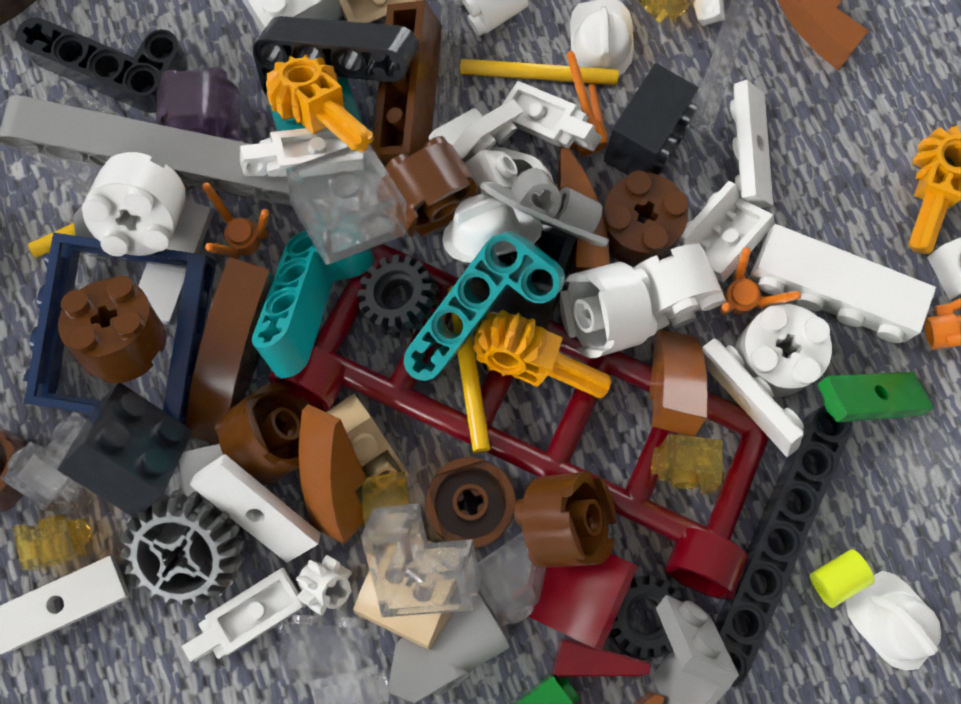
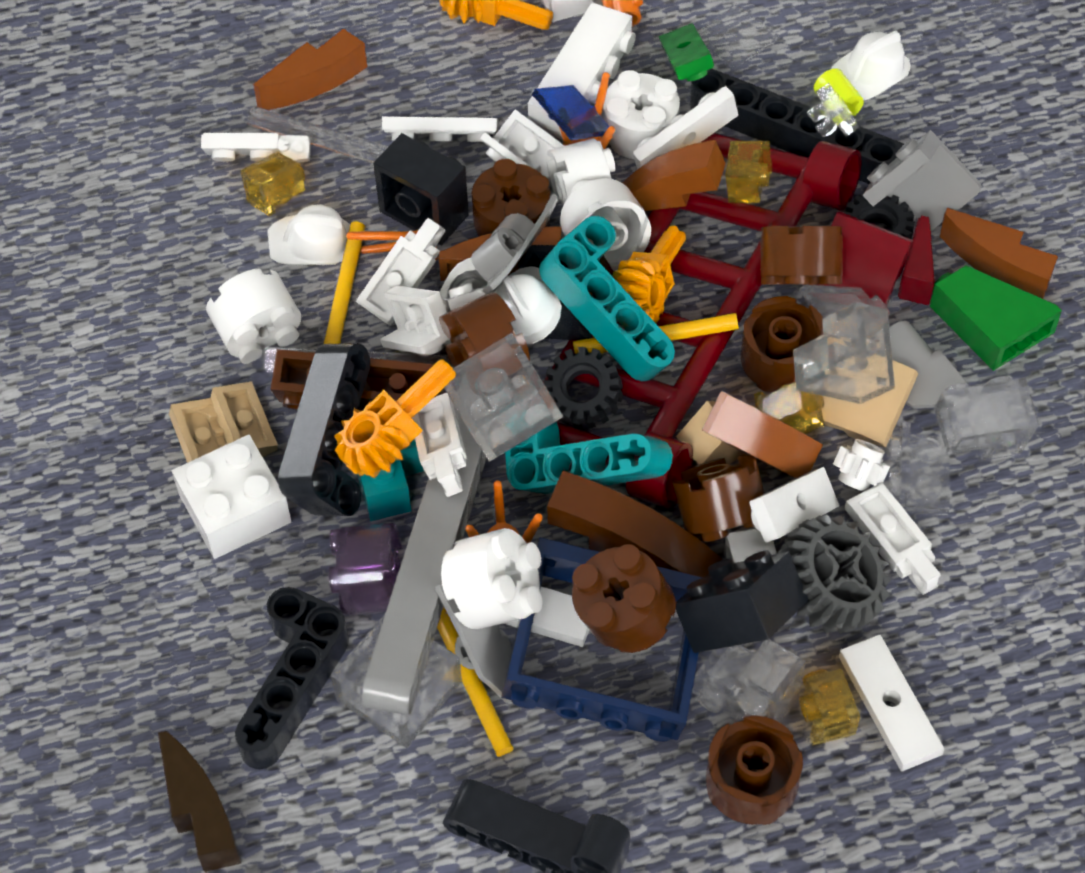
camera: 85 degrees left, 20 degrees down
(751, 264) = (571, 111): none -> clear blue piece
(788, 567) = (834, 111): none -> clear tile

